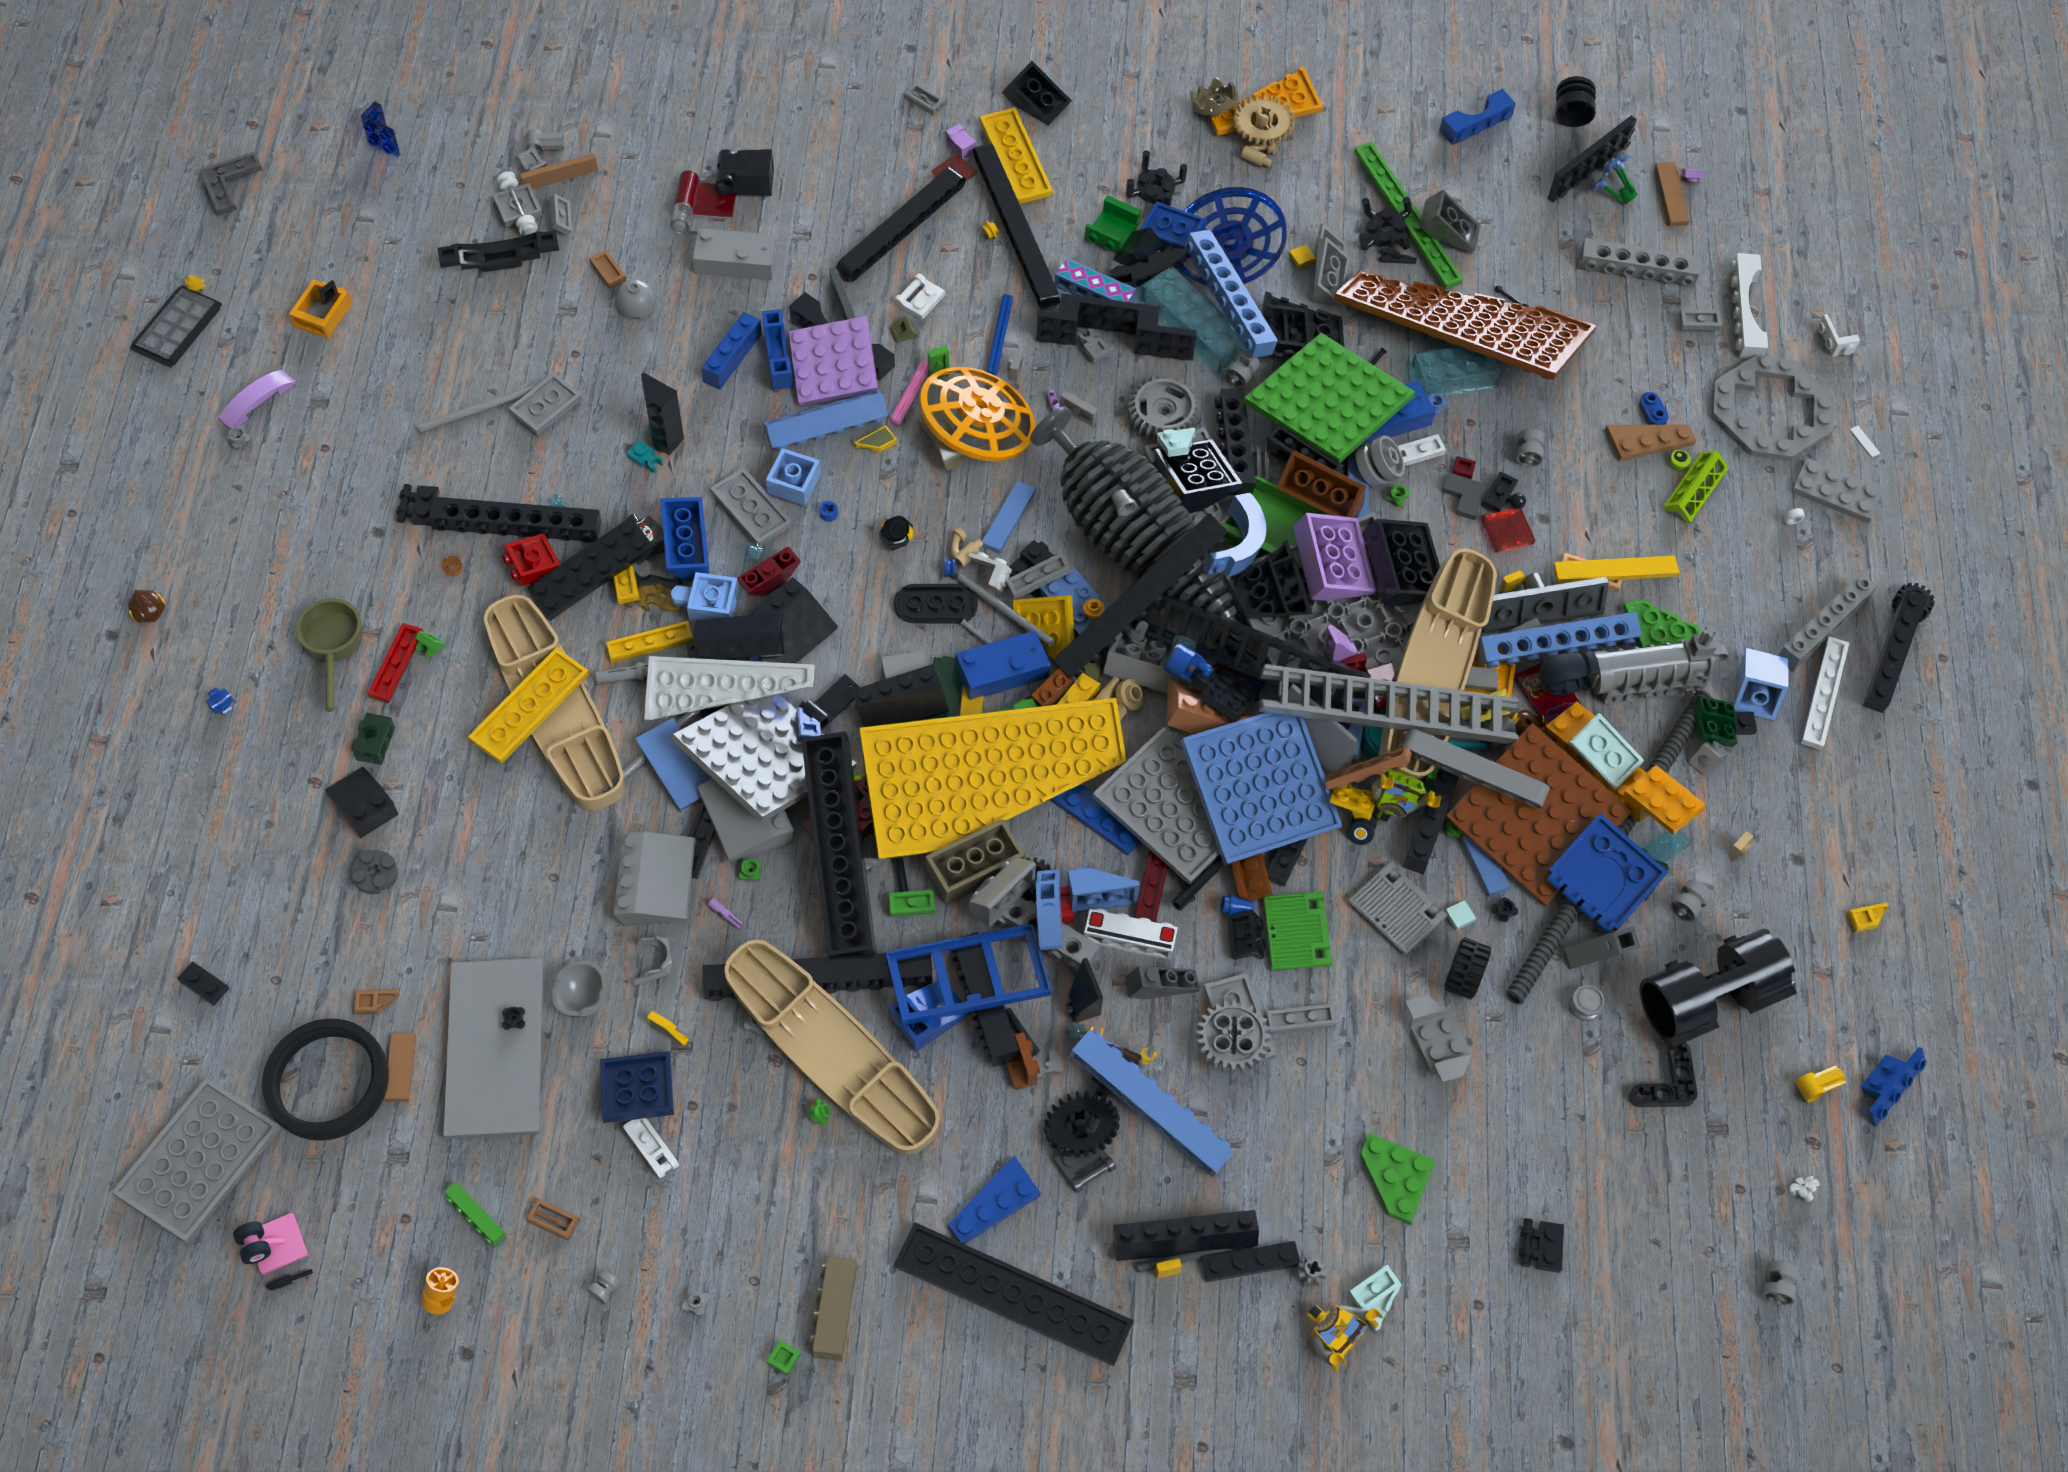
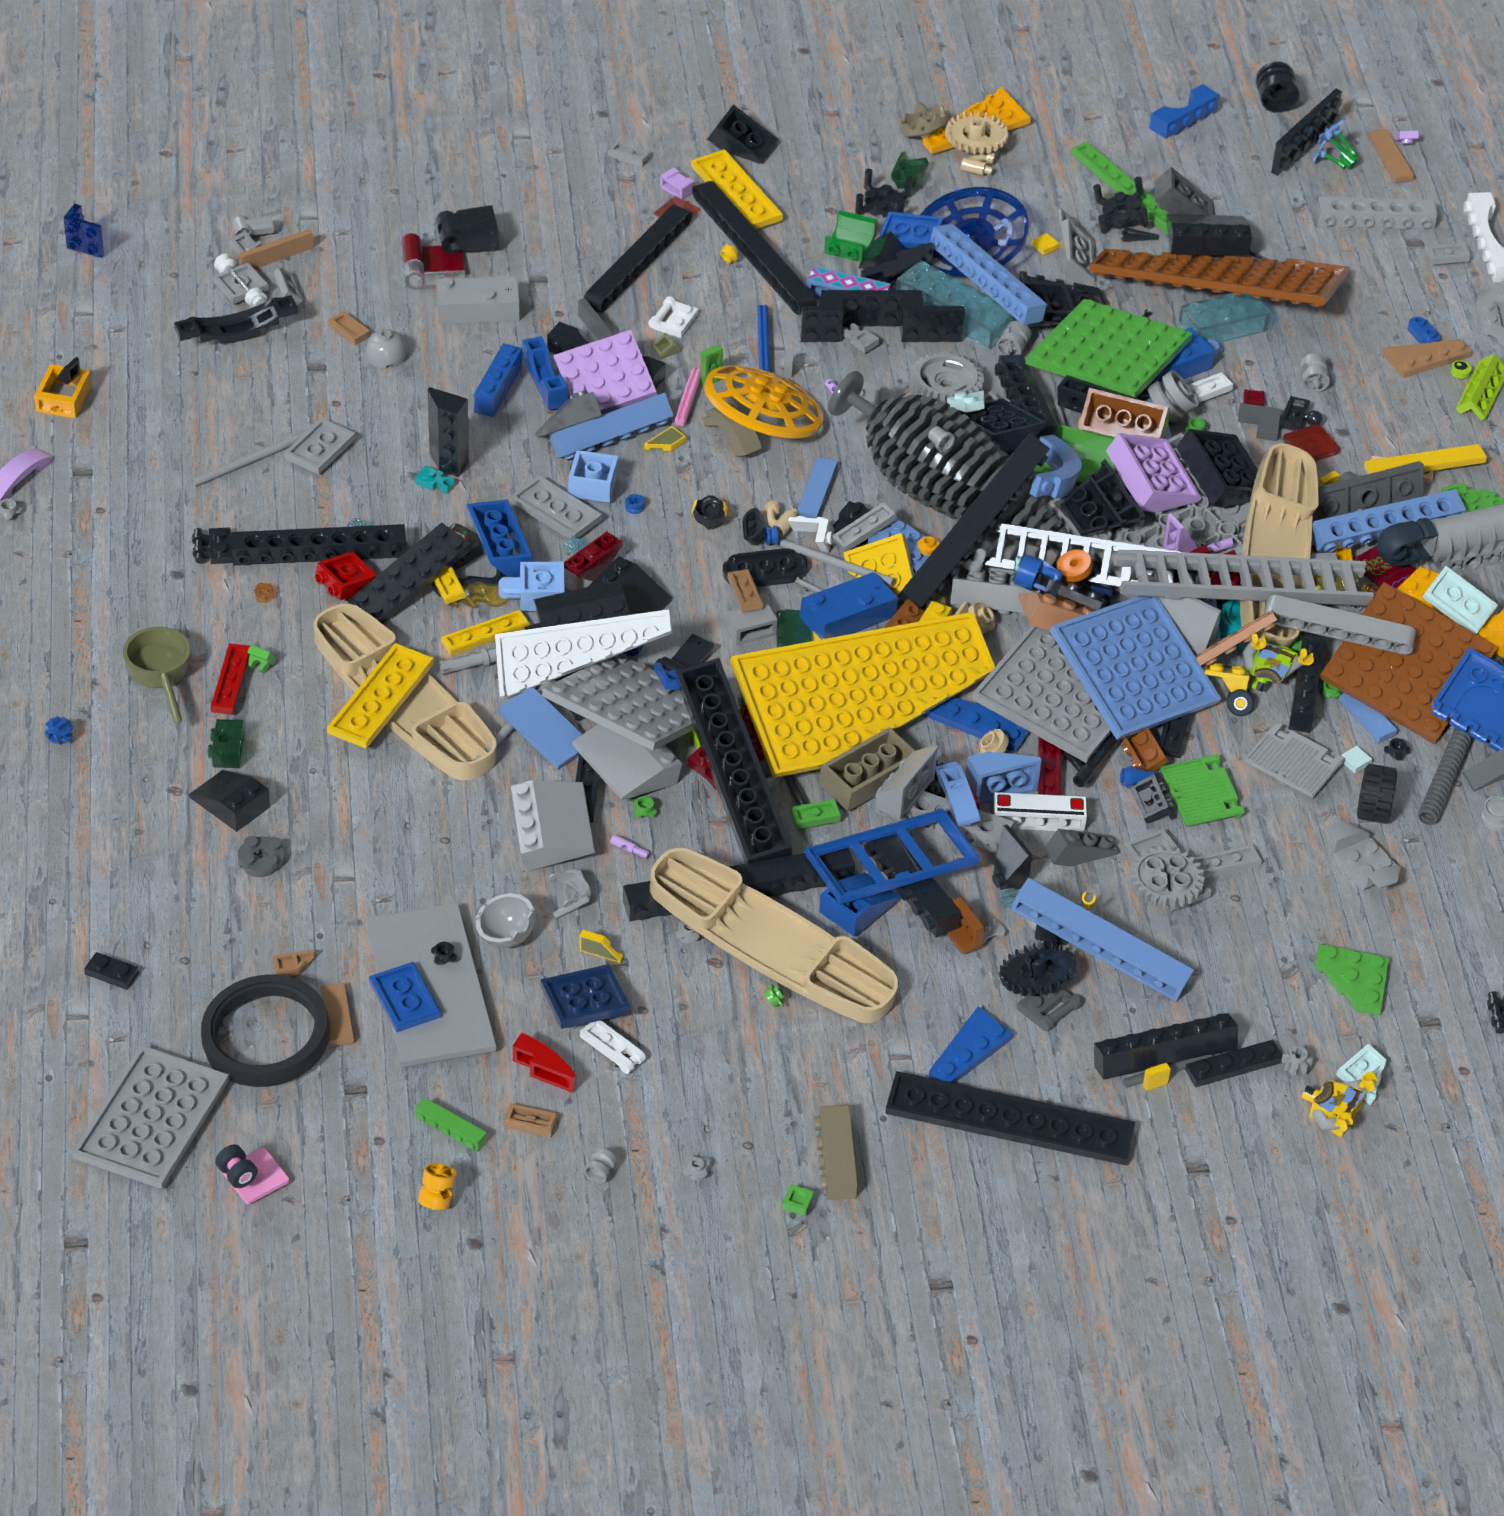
camera: 10 degrees left, 15 degrees down
(287, 1280) = (274, 1205): black piece -> none
(465, 1062) = (405, 997): none -> blue tile
(578, 1156) = (543, 1063): none -> red slope
(790, 403) = (576, 410): none -> flat silver slope
(901, 698) = (761, 634): black slope -> none
(905, 633) = (745, 590): none -> medium nougat tile
(935, 555) = (753, 526): none -> black plate
(1104, 848) = (993, 742): none -> tan plate
(1188, 153) = (906, 167): none -> clear green bracket
(1230, 666) = (1067, 563): none -> orange piece
(1386, 649) = (1223, 544): none -> lavender pin
(1464, 268) = (1208, 234): none -> black slope

